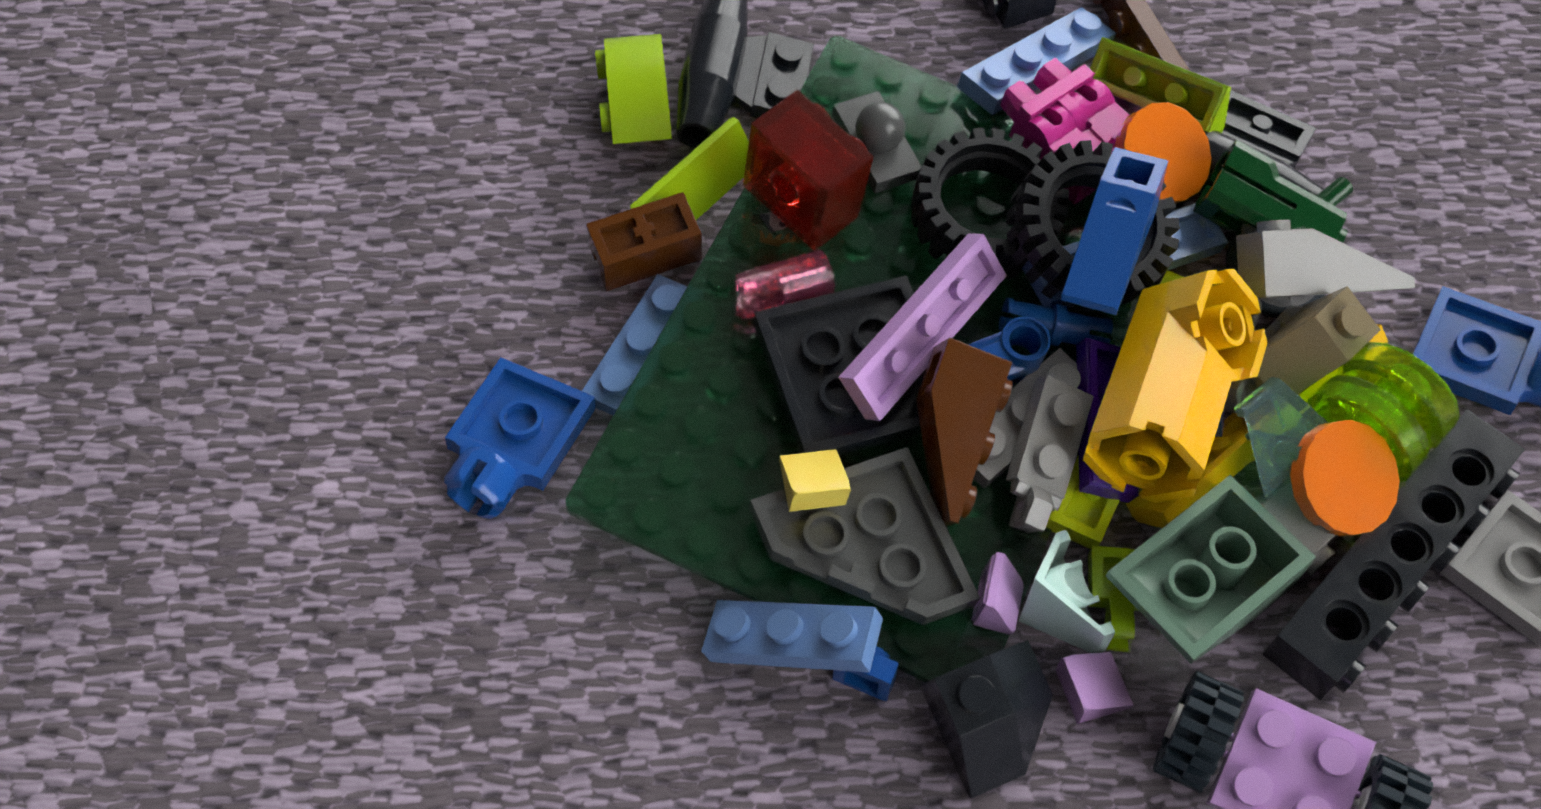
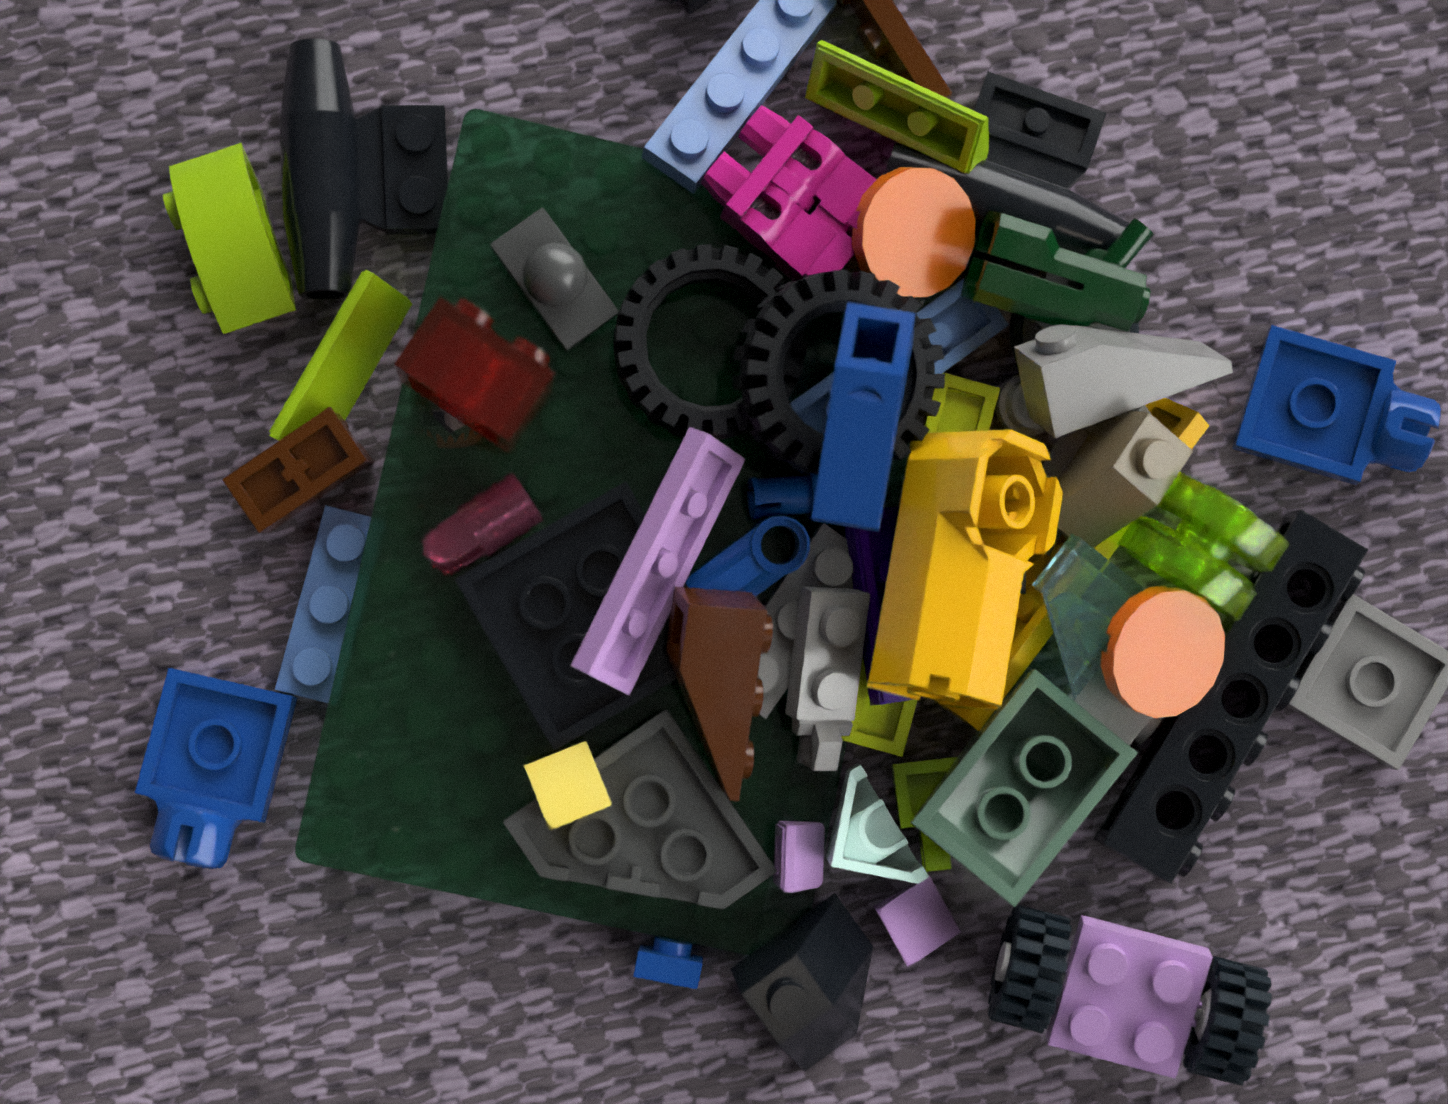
camera: 10 degrees left, 25 degrees up
(793, 635) = (582, 951): medium blue plate -> none

